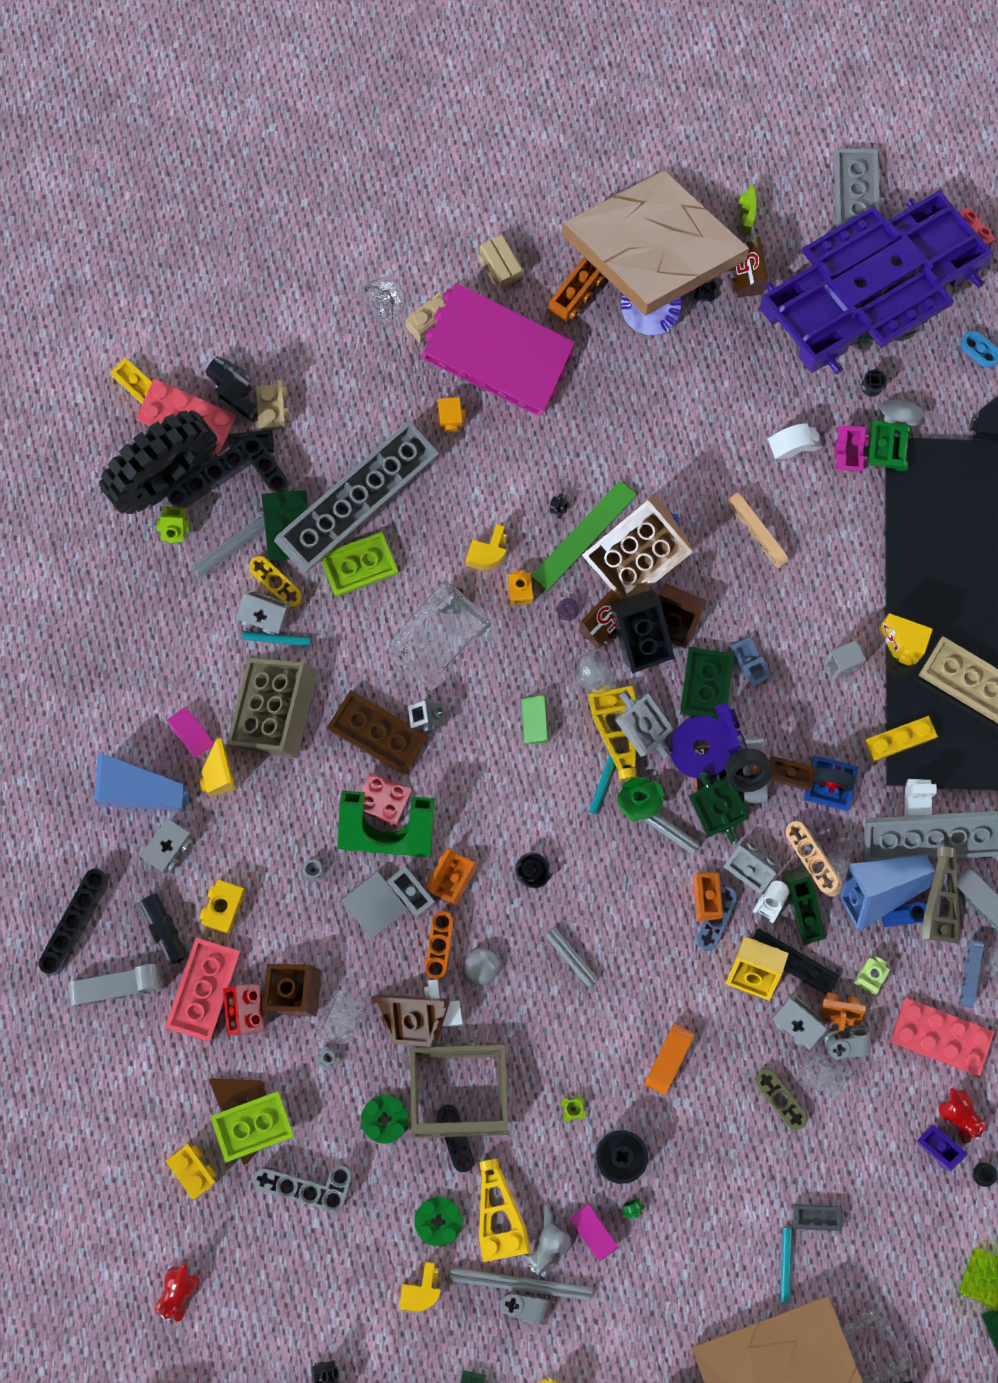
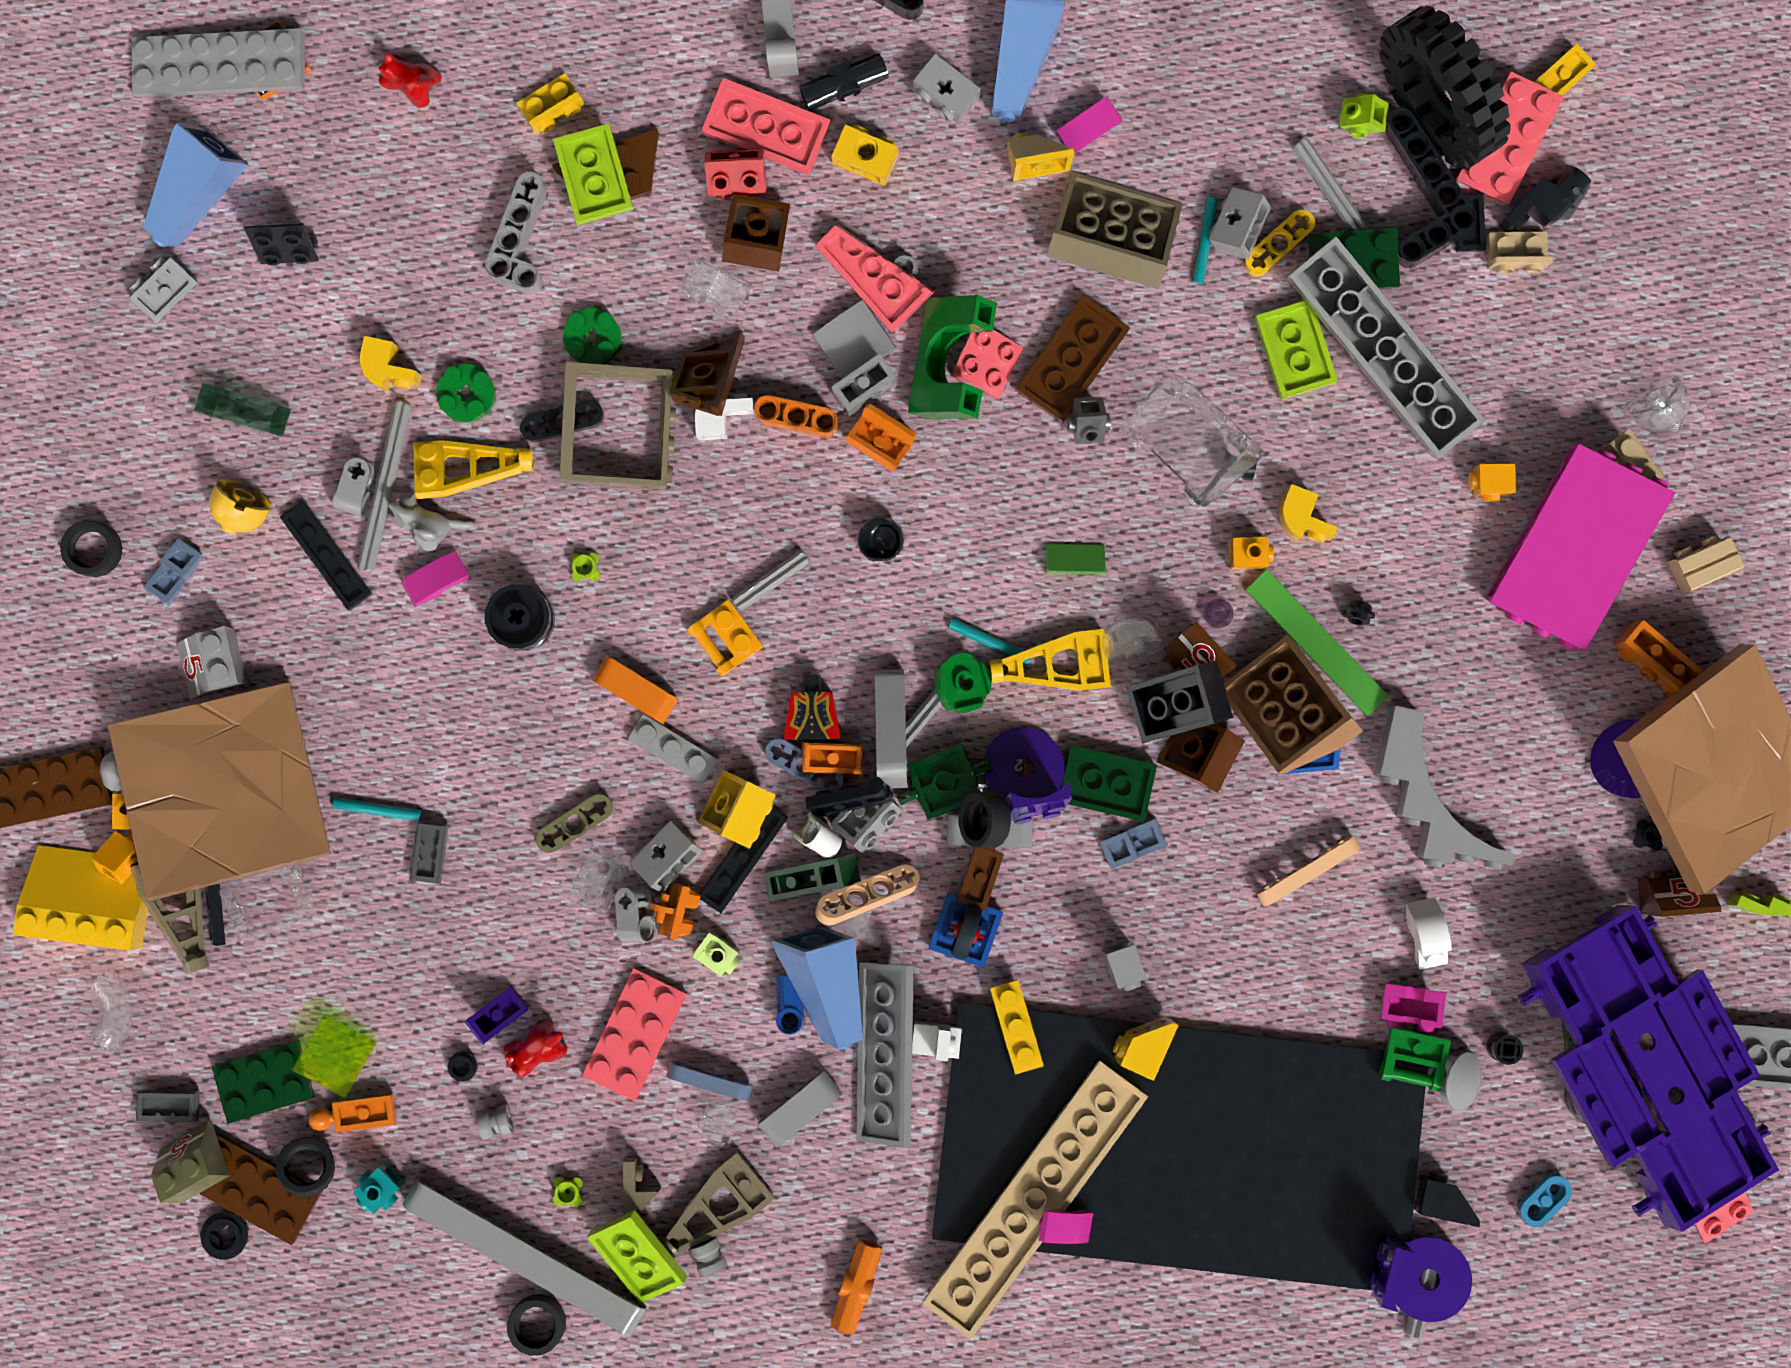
camera: 100 degrees right, 10 degrees up
(324, 890) = (876, 279): none -> coral wing
(328, 1064) = (671, 281): light grey plate -> none
(481, 966) = (768, 468): light grey hair -> none
(582, 1328) = (326, 555): none -> black tile
(615, 984) = (732, 631): none -> light orange plate
(633, 1208) = (456, 630): green plate -> none
(644, 724) = (1057, 696): light grey plate -> none
(668, 466) = (1441, 836): none -> light grey arch
(675, 915) = (812, 713): none -> torso
(681, 851) = (891, 727): none -> light grey beam
(713, 1024) = (673, 749): none -> light grey plate
(739, 878) = (850, 798): none -> black plate
(937, 927) = (767, 1054): dark tan plate -> none

